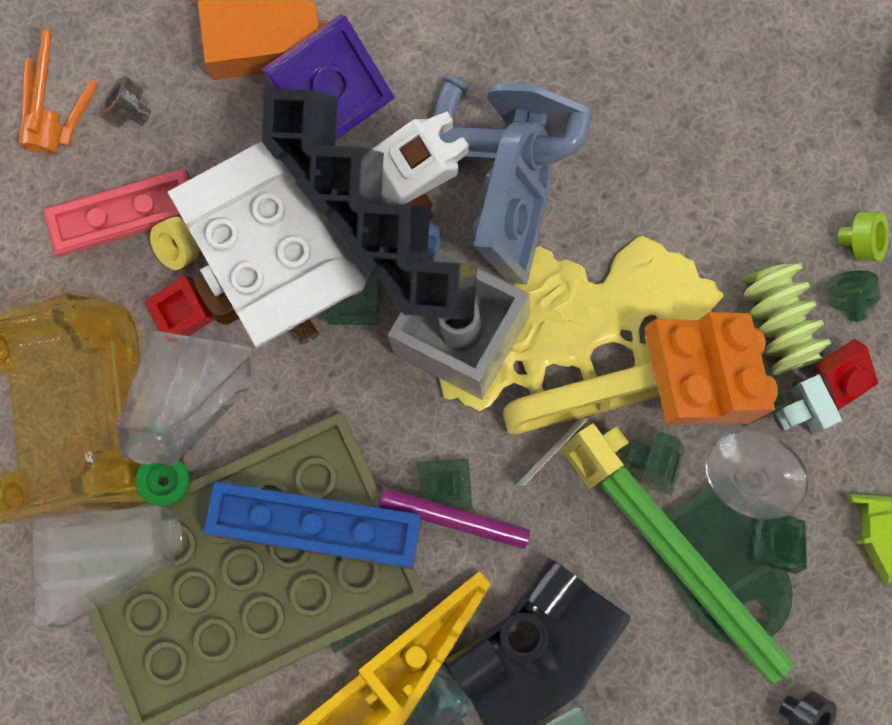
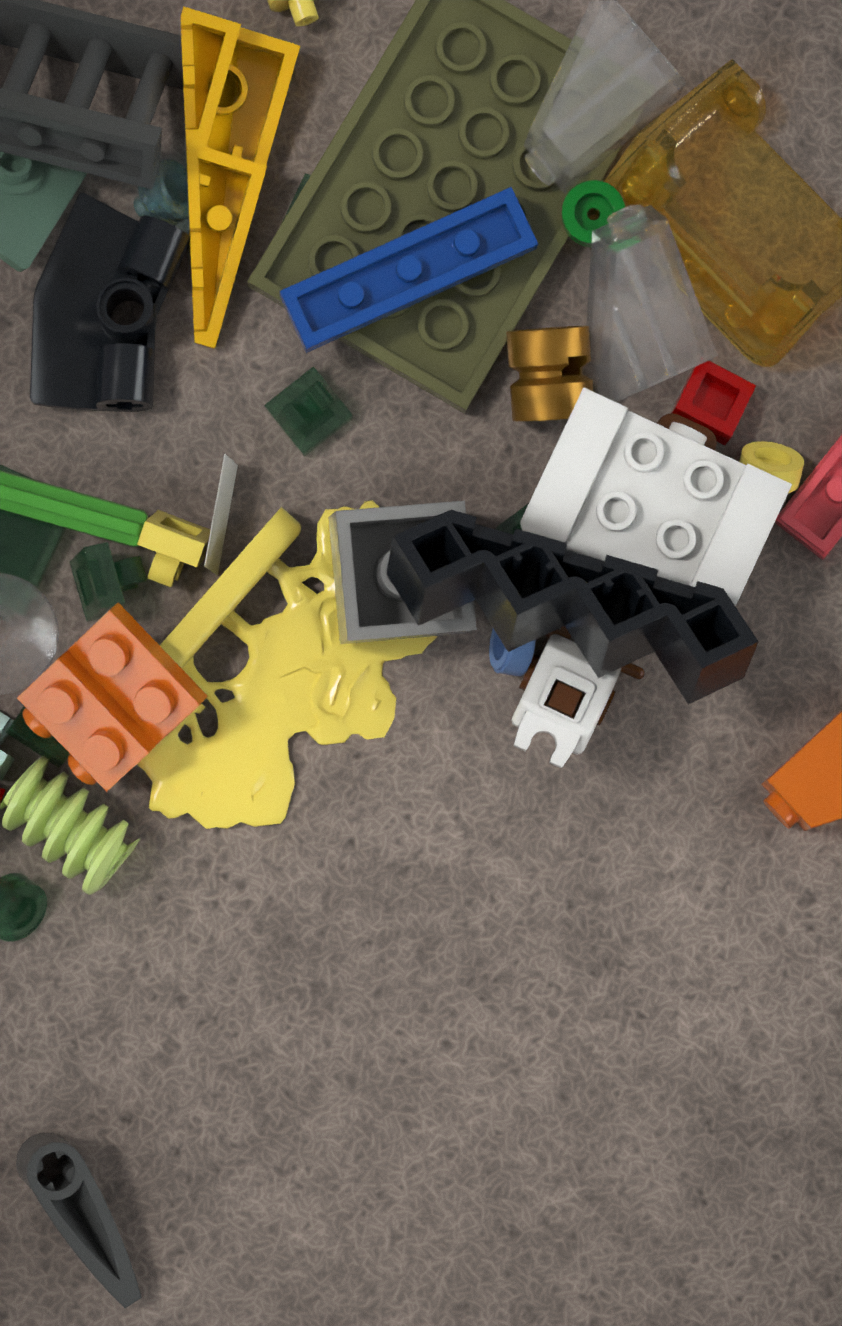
camera: 145 degrees right, 5 degrees up
(266, 400) = (548, 371): none -> pearl gold wheel
(336, 65) = (734, 753): dark purple tile -> none
(455, 518) = (275, 380): magenta bar -> none
(517, 188) = (450, 786): sand blue plate -> none
(867, 236) = (34, 980): lime tile -> none

